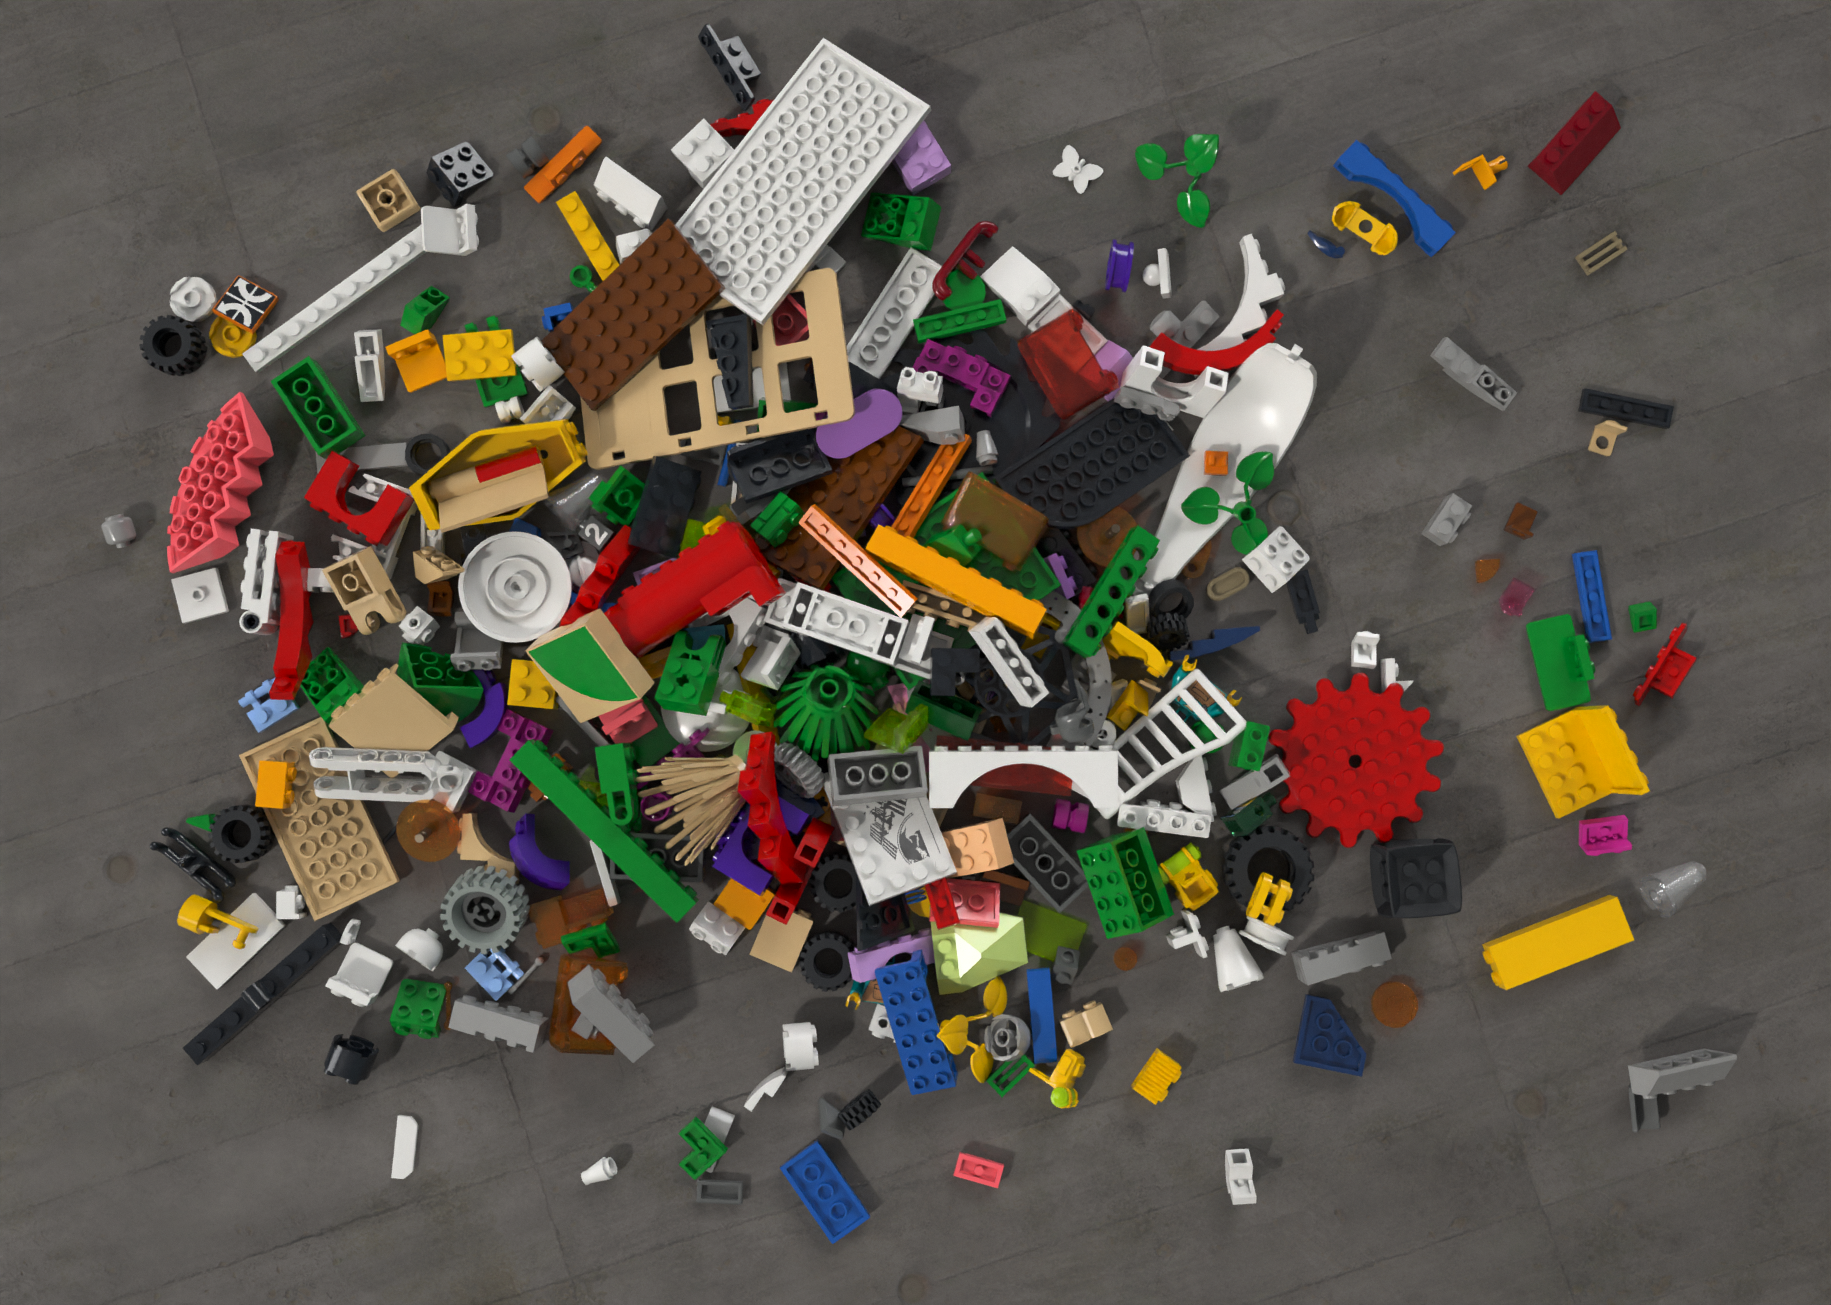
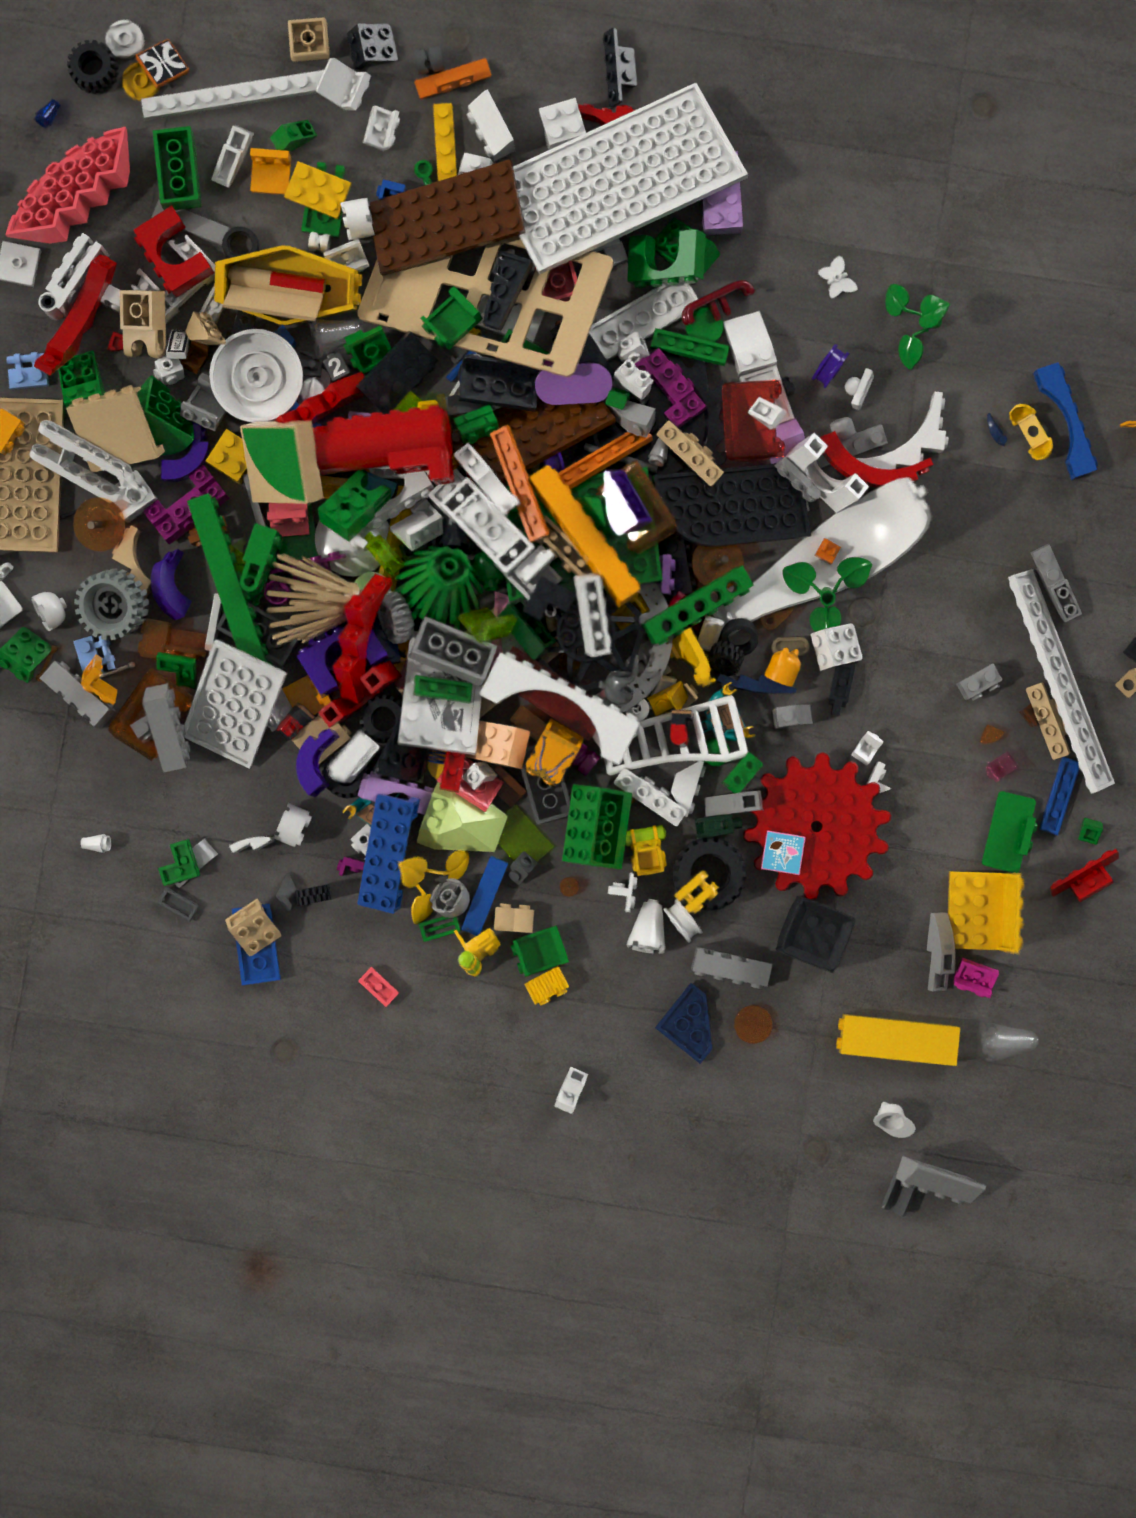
camera: 25 degrees right, 0 degrees up
(150, 420) = (46, 114): none -> clear blue cone
(414, 595) = (178, 345): none -> tile
(512, 1004) = (92, 683): none -> light orange bracket
(514, 255) = (381, 128): none -> white bracket
(670, 950) = (233, 703): none -> white plate
(694, 421) = (452, 319): none -> green panel
(744, 934) = (294, 721): none -> leg
(782, 973) = (308, 762): none -> dark purple arch
(812, 1178) = (252, 928): none -> tan bracket
(819, 574) = (486, 479): none -> white piece
(831, 947) = (354, 758): none -> white arch
(885, 1052) = (355, 865): none -> magenta bracket
(886, 821) = (442, 689): none -> green tile
(900, 353) = (632, 348): none -> white brick
(913, 414) = (618, 398): none -> green slope
(916, 239) = (686, 268): none -> green arch
(970, 891) = (478, 774): none -> white bracket
(983, 527) = (623, 504): none -> slope
(1021, 432) = (691, 452): none -> tan bracket
(1040, 828) = (553, 753): none -> light orange slope
(1082, 350) = (767, 413): none -> white slope
(1129, 1043) = (539, 951): none -> green panel
(1158, 731) = (679, 727): none -> leg
(1234, 610) = (784, 667): none -> light orange piece
(1268, 658) = (792, 716): none -> light grey slope
(1335, 807) = (783, 852): none -> medium azure tile
(1533, 474) = (1061, 681): none -> white plate
(1542, 521) = (1049, 720): none -> tan bracket
(1552, 819) = (942, 946): none -> light grey slope
(1596, 1031) = (893, 1121): none -> white piece

